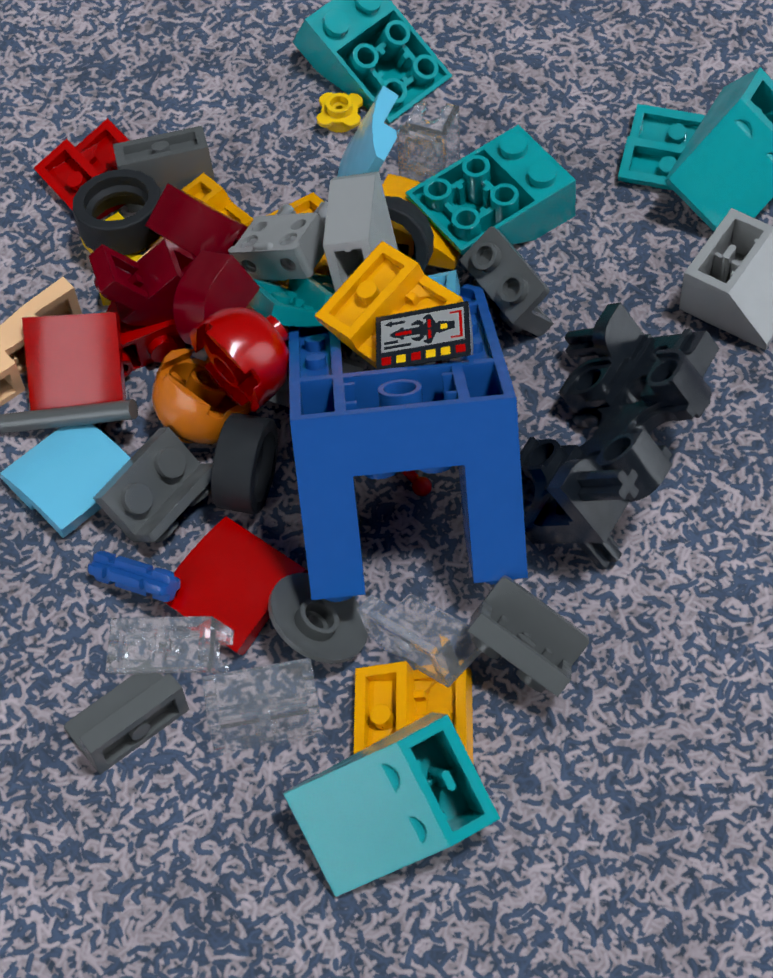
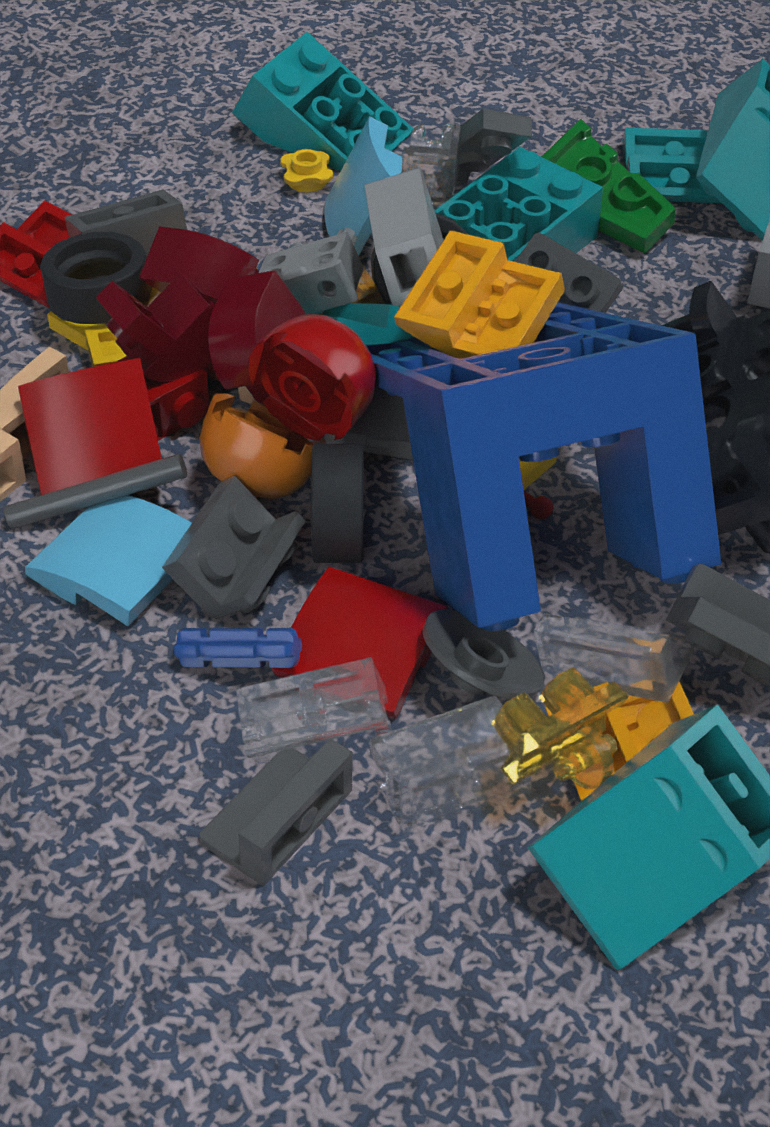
camera: 20 degrees left, 10 degrees down
(362, 693) = (566, 739): none -> clear yellow hips
(424, 336) = (535, 314): piece -> none
(484, 120) = (489, 138): none -> dark grey hinge
(603, 184) = (630, 205): none -> green wing

